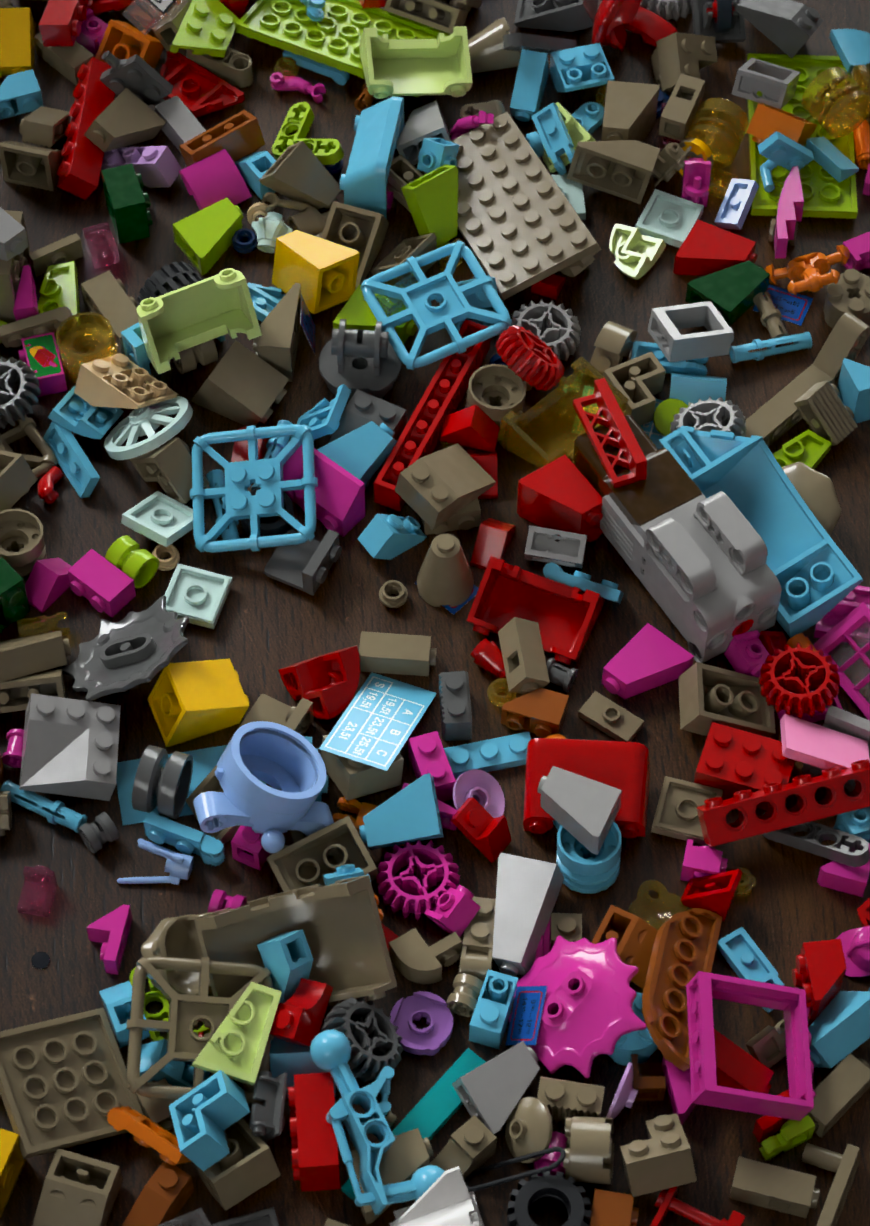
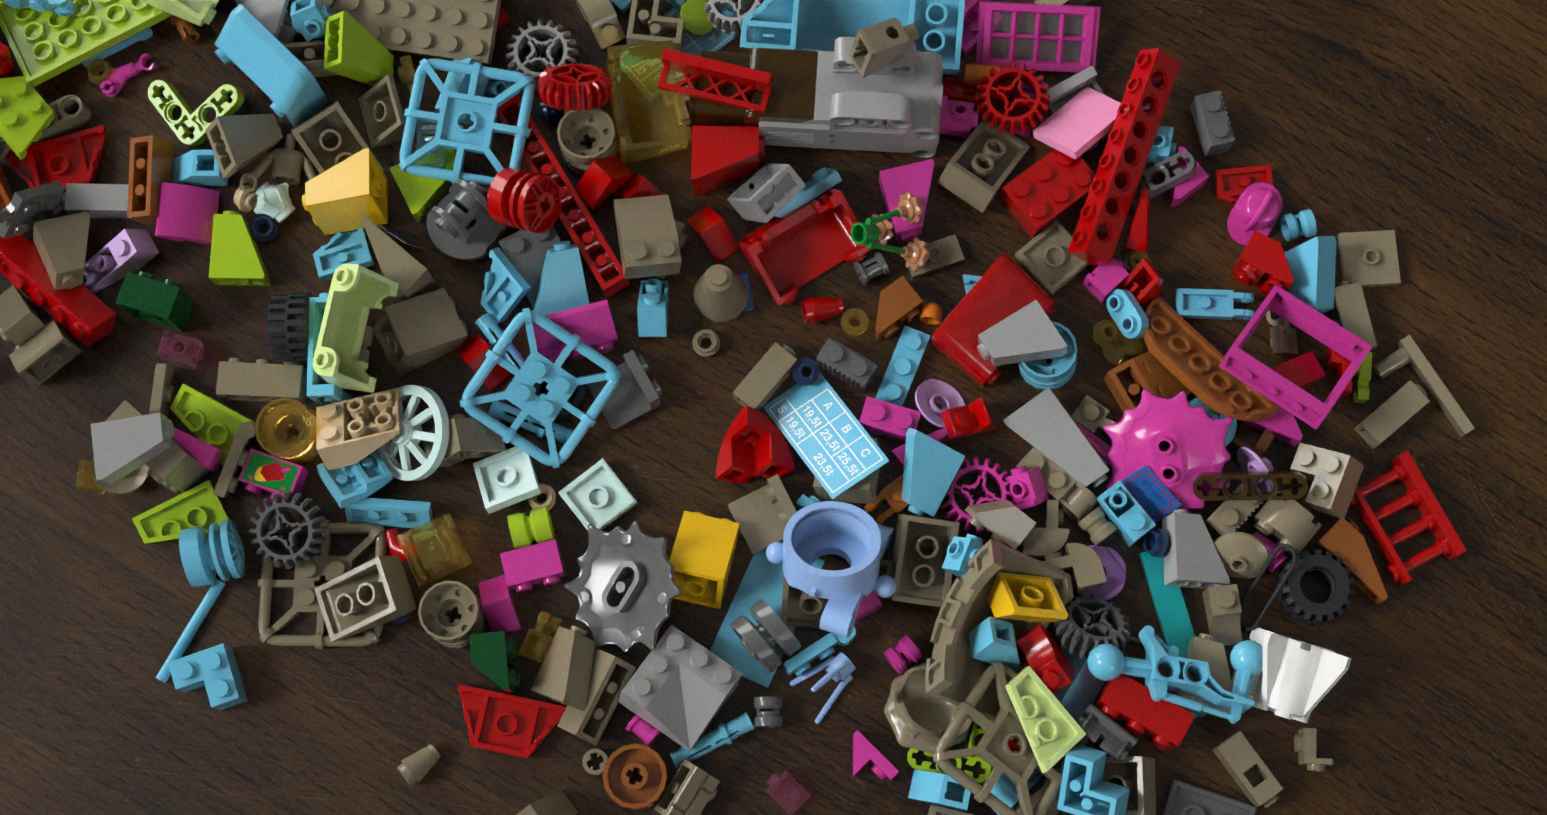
camera: 50 degrees left, 20 degrees up
(62, 504) = (434, 550): none -> clear yellow brick
(342, 951) = (1025, 598): none -> yellow slope
(397, 364) = (524, 200): none -> red wheel
(405, 901) = (1003, 520): none -> dark tan slope
(414, 995) = (1083, 564): none -> dark tan brick
(424, 686) = (799, 378): none -> dark blue plate
(485, 1049) = (1156, 542): none -> dark blue plate
(523, 656) = (843, 285): dark tan brick -> none
(592, 1084) = (1250, 489): none -> dark brown beam
(597, 657) = (877, 231): none -> nougat plant
(681, 893) = (1125, 309): none -> medium azure plate
(736, 514) = (881, 45): none -> dark tan torso
(774, 854) = (1138, 231): none -> red slope

